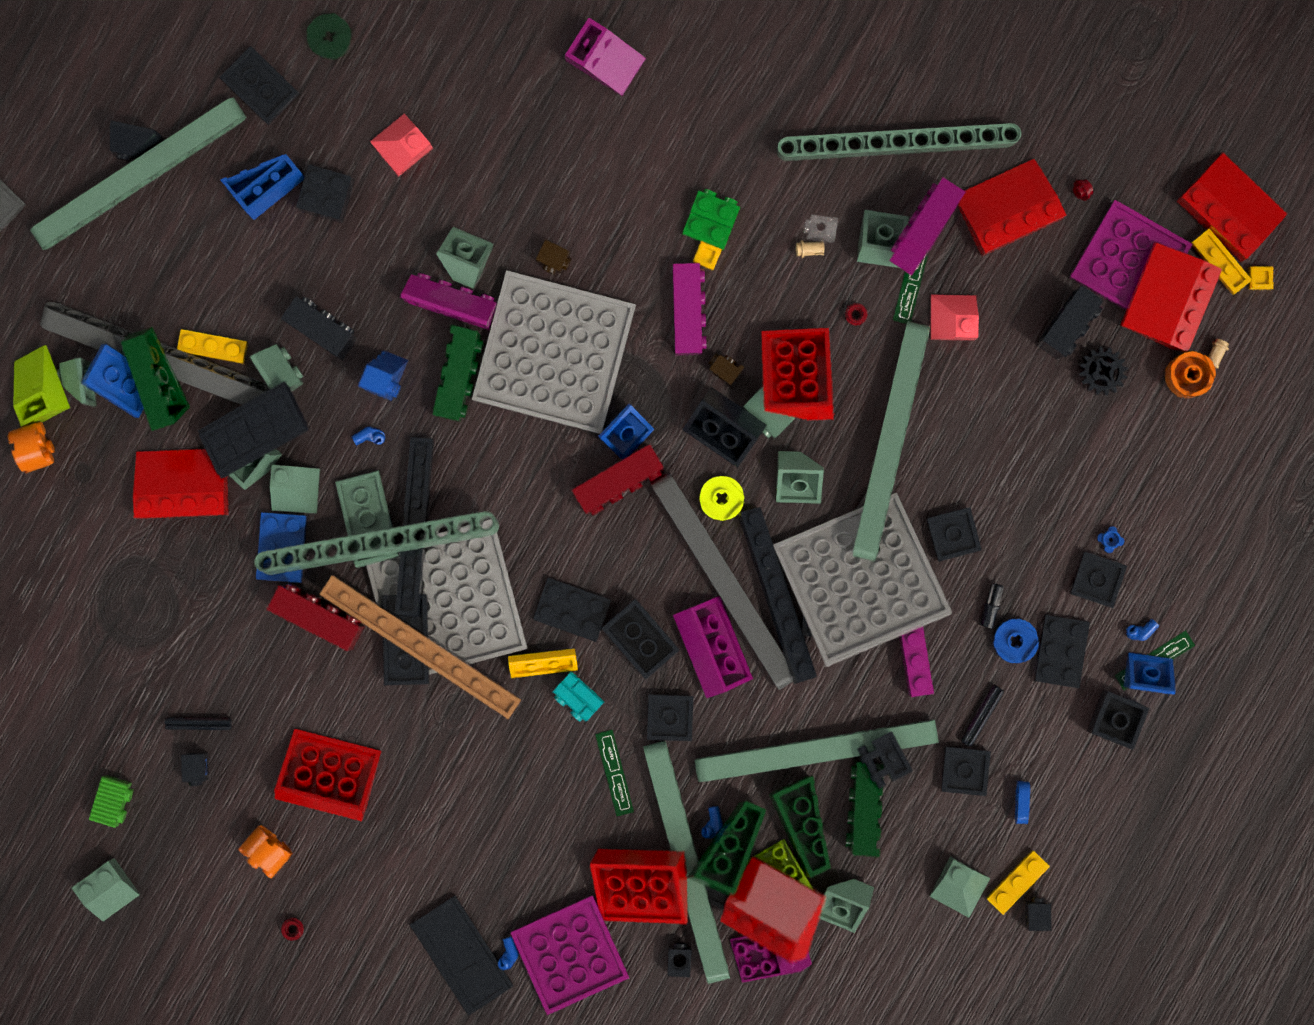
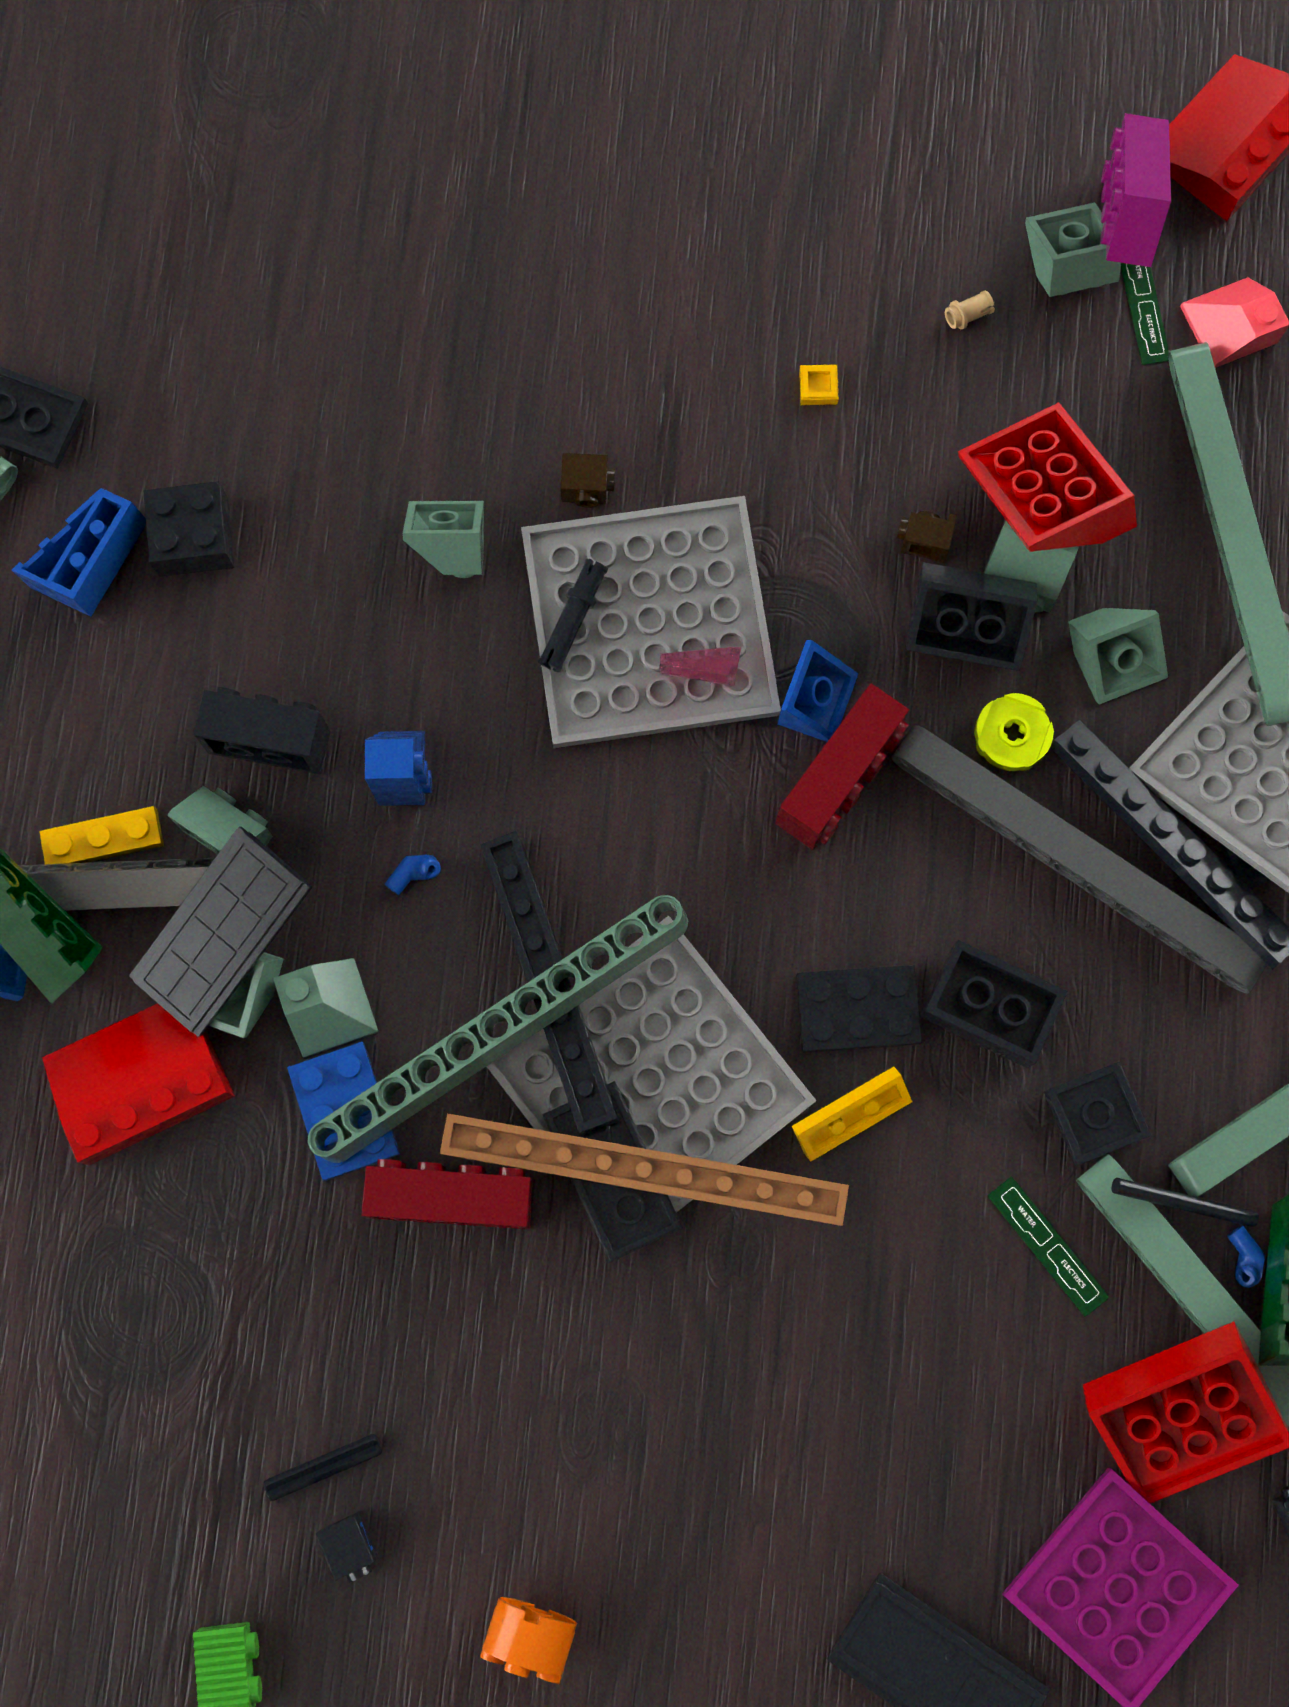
camera: 20 degrees left, 10 degrees down
(316, 34) = (95, 283): clear green plate -> none
(327, 775) = (578, 1459): red slope -> none
(365, 511) = (453, 988): sand green tile -> none
(401, 144) = (280, 411): coral slope -> none
(449, 301) = (452, 610): magenta slope -> none
(457, 374) = (512, 711): dark green wedge -> none
(509, 956) = (1019, 1635): blue arm -> none
(511, 334) = (578, 603): none -> black pin
(573, 394) = (706, 665): none -> clear pink slope
(578, 697) = (934, 1144): teal brick -> none
(604, 57) = (532, 161): magenta slope -> none
(687, 309) = (828, 470): magenta brick -> none
(690, 781) = (1184, 1202): none -> black bar
(711, 219) = (801, 326): green plate -> none
(713, 647) = (1111, 971): magenta slope -> none
(827, 234) = (970, 283): clear brick -> none
(856, 307) = (1086, 366): dark red plate -> none
(908, 136) = (1016, 120): sand green beam -> none

